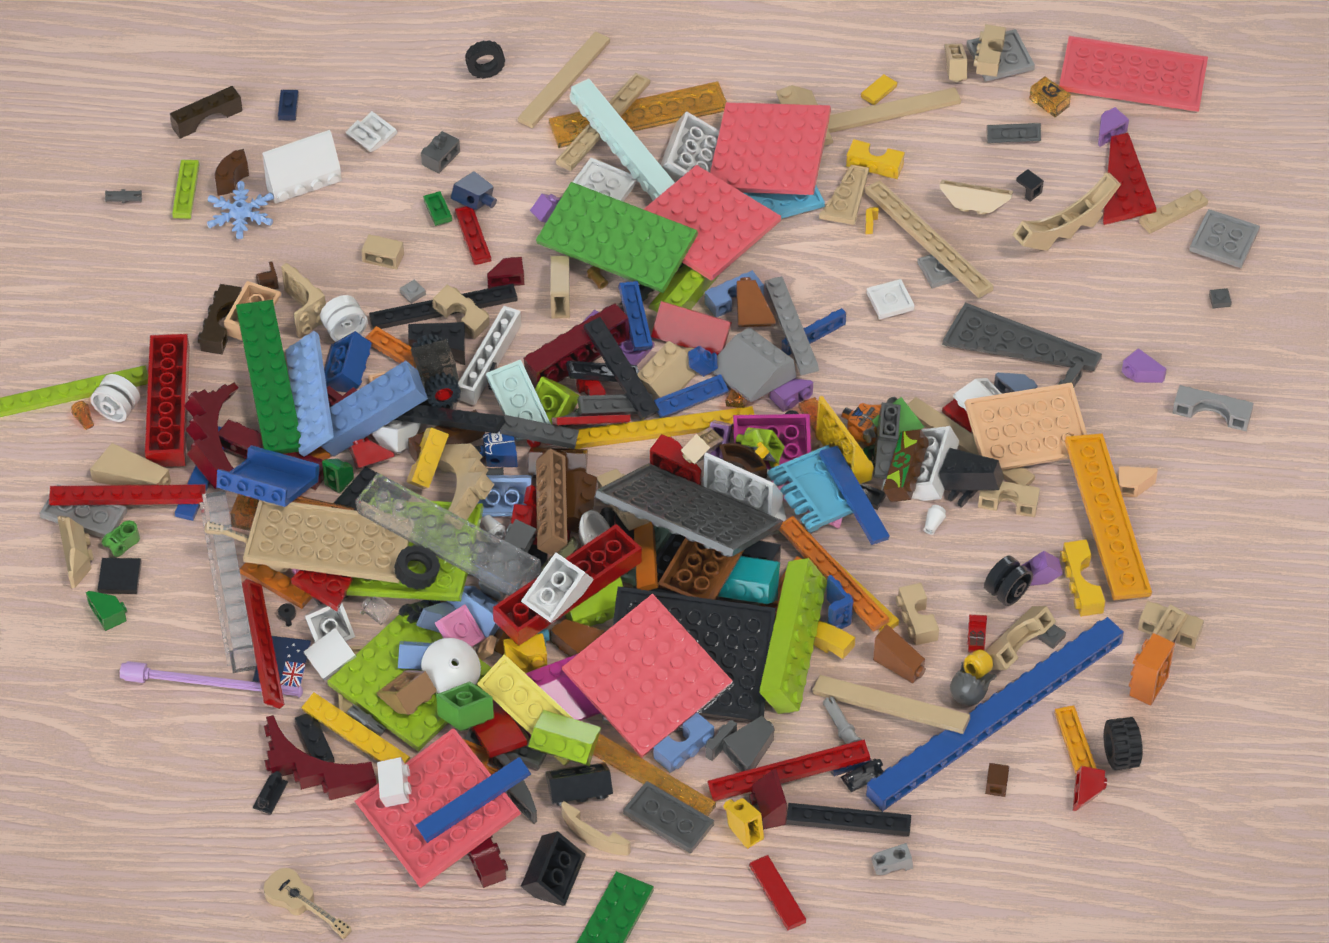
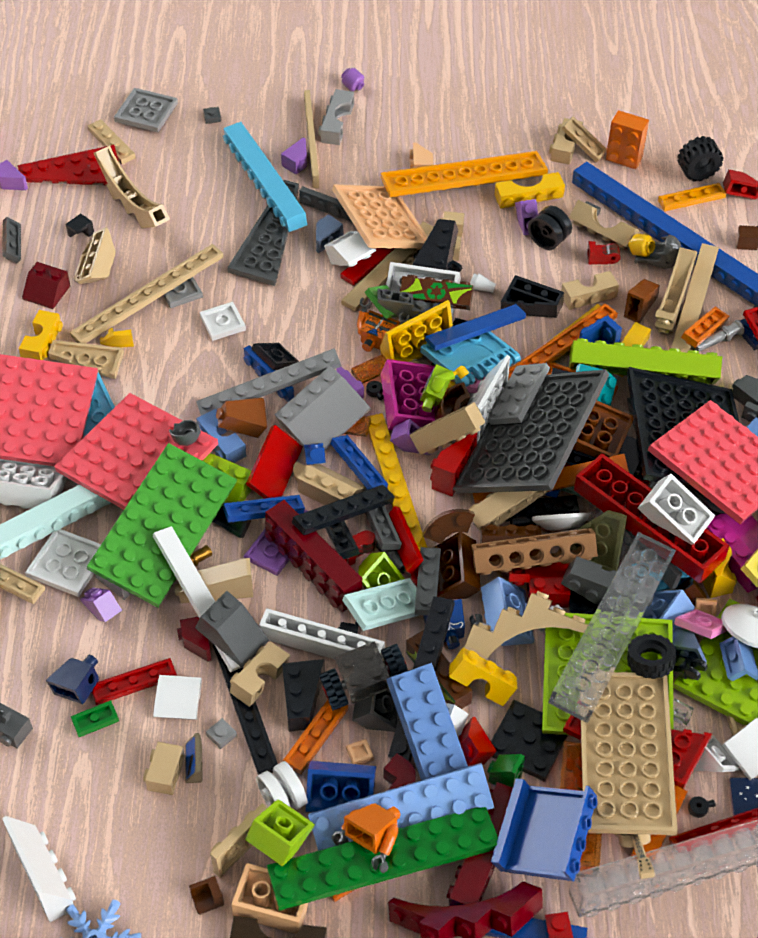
camera: 95 degrees left, 0 degrees up
(284, 360) = (373, 829): none -> orange torso
(293, 300) = (279, 832): none -> lime slope
(389, 272) = (193, 760): none -> slope
(450, 261) = (177, 697): none -> white slope
(499, 284) = (232, 629): none -> dark grey slope
(536, 264) = (188, 578): none -> white tile
(600, 451) = (447, 523): none -> reddish brown brick
(710, 244) = (185, 432): none -> dark grey hair
(748, 511) = (518, 394): none -> light grey plate
(834, 336) = (274, 355): none -> black tile
(849, 706) = (705, 327): none -> orange plate
(872, 674) = (675, 292): none -> tan arch
(903, 554) = (533, 298): none -> black wedge
(947, 161) = (45, 285): none -> dark red slope
(1101, 332) = (265, 177): none -> medium azure brick
(1171, 382) = (311, 139): none -> tan tile
(1281, 426) = (352, 79): none -> medium lavender head

